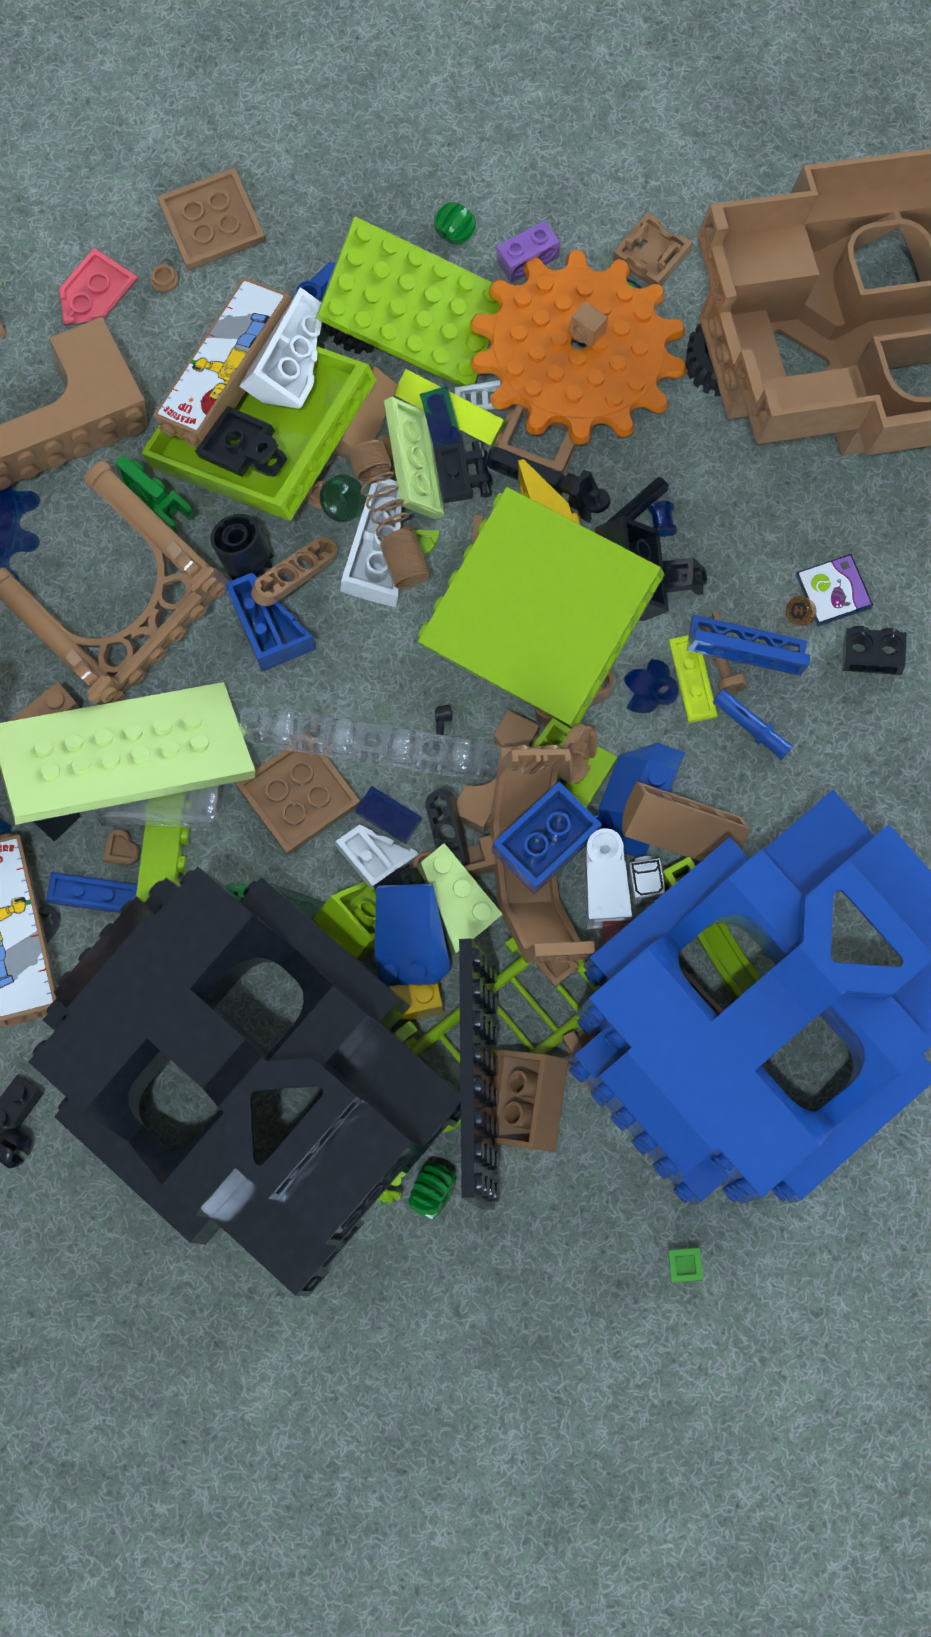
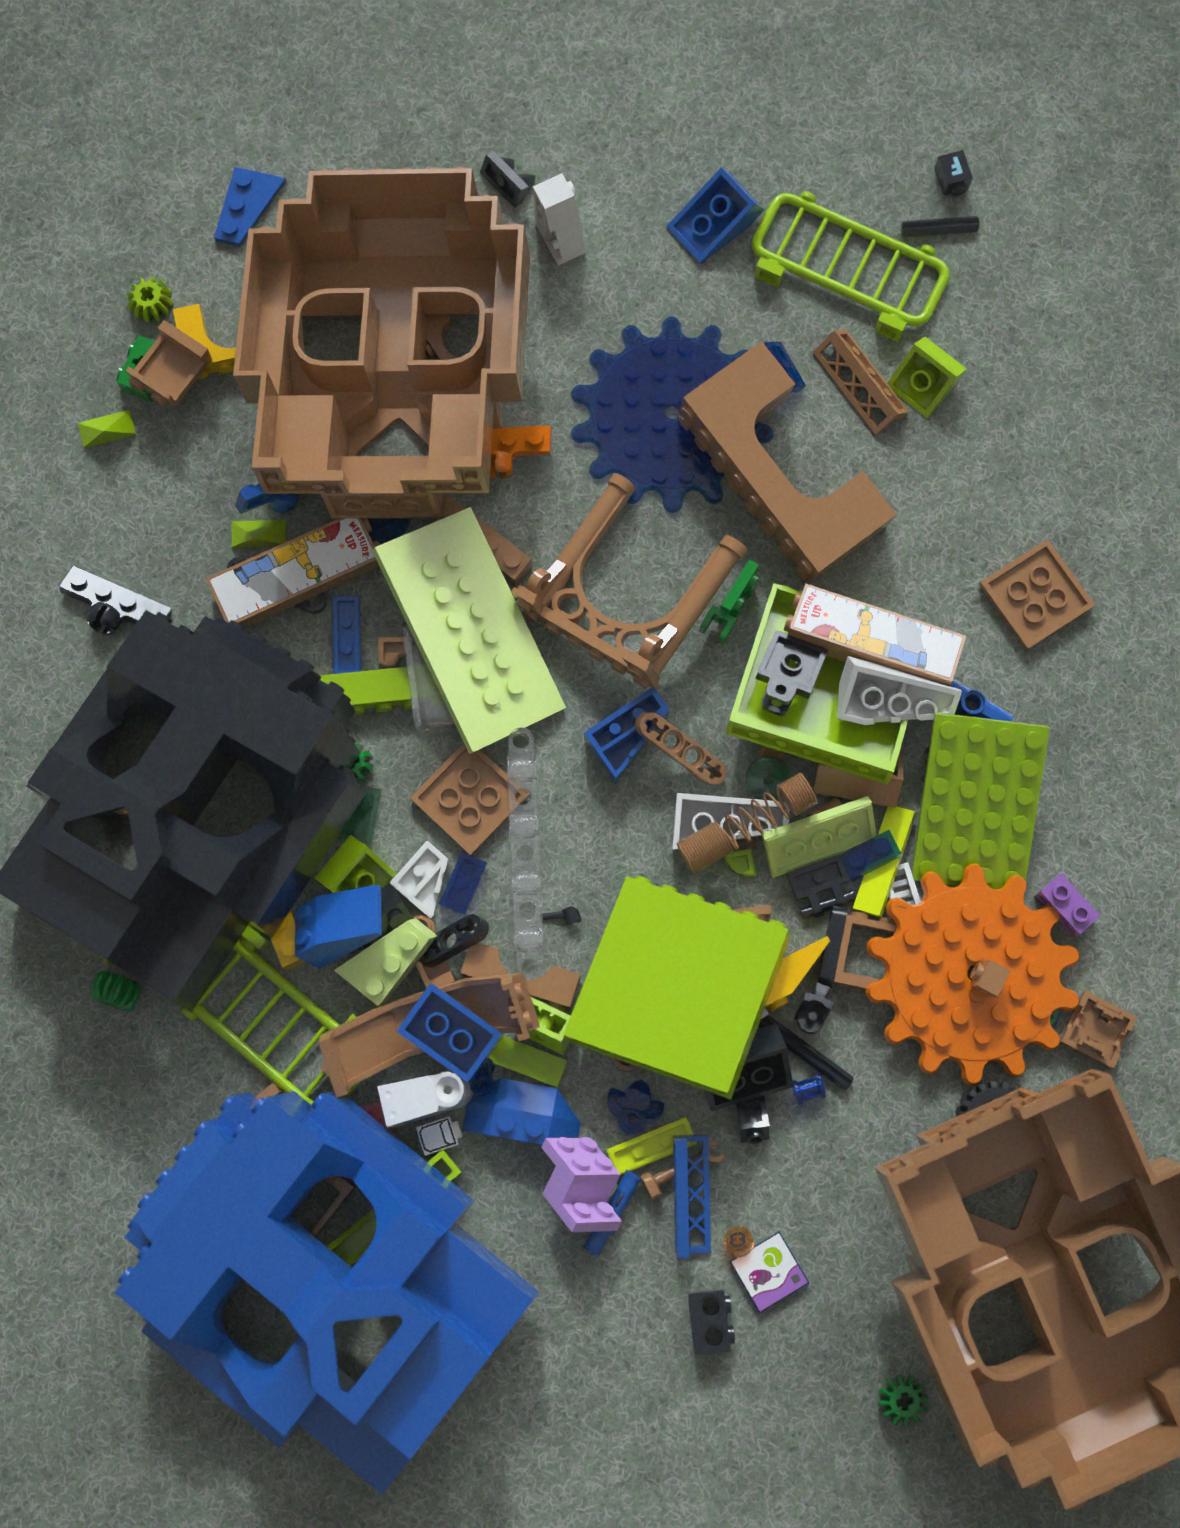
camera: 75 degrees right, 5 degrees up
(94, 288) = (939, 503): coral tile -> none
(164, 278) = (964, 565): medium nougat plate -> none
(241, 546) = (694, 694): black gear -> none
(454, 223) = (1082, 828): green piece -> none
(476, 1076) = (206, 1010): black plate -> none
(529, 1099) = (209, 1061): medium nougat slope -> none
(583, 745) = (545, 1046): medium nougat tile -> none
(679, 823) = (491, 1161): medium nougat brick -> none
(685, 1265) = (80, 1233): bright green tile -> none
(721, 740) = (581, 1184): none -> lavender bracket

